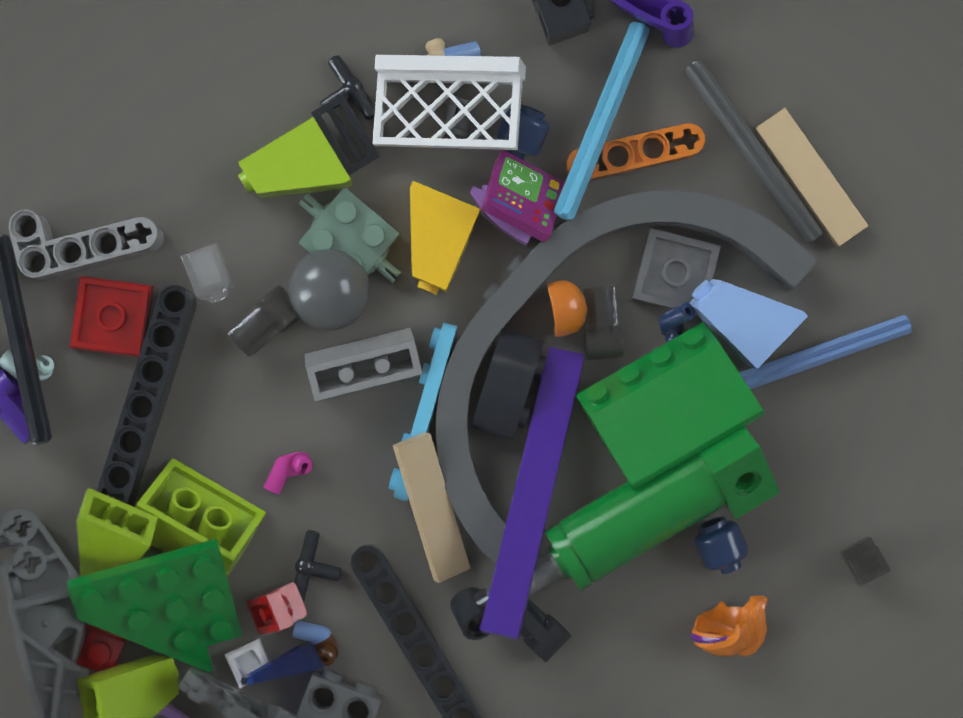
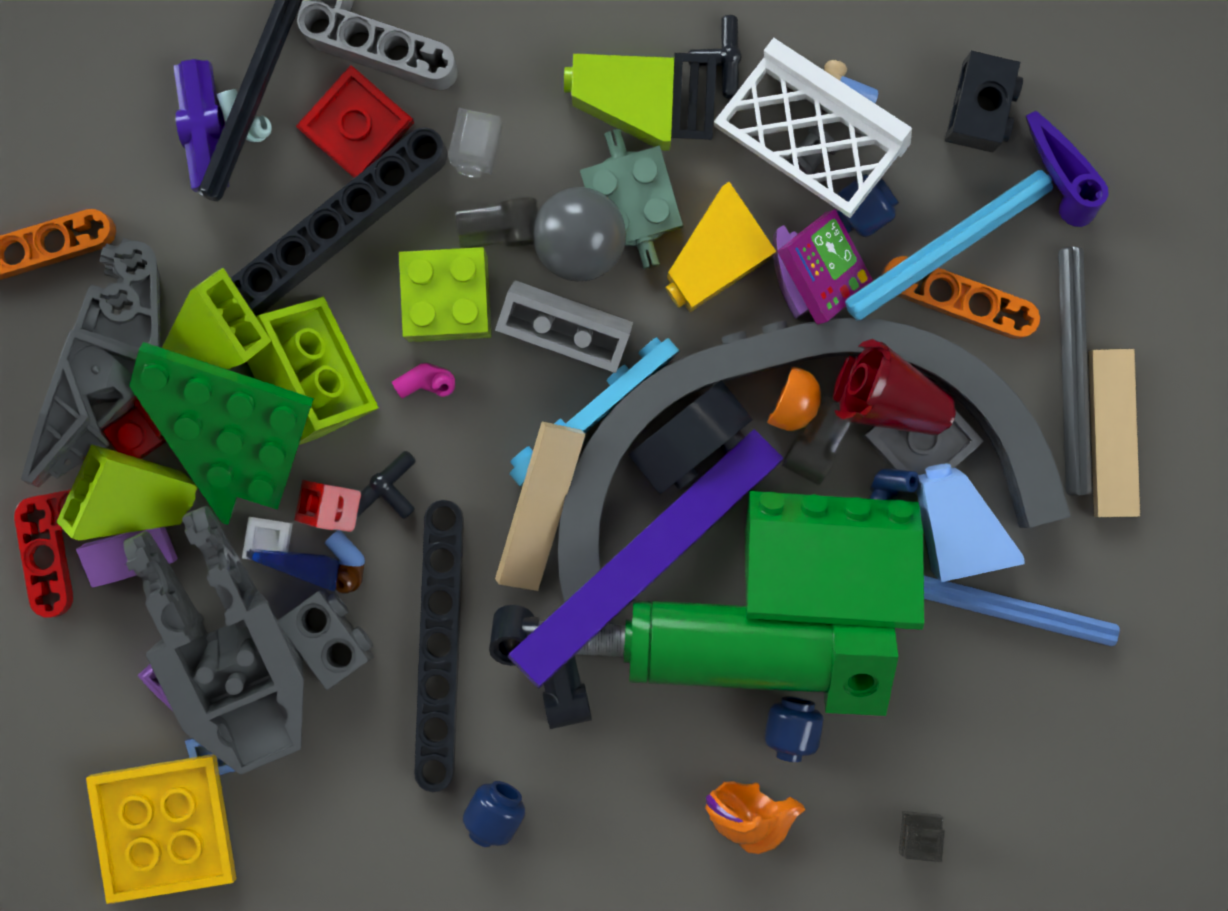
camera: 30 degrees right, 0 degrees up
(260, 398) = (445, 294): none -> lime brick
(630, 257) = (890, 393): none -> dark red cone

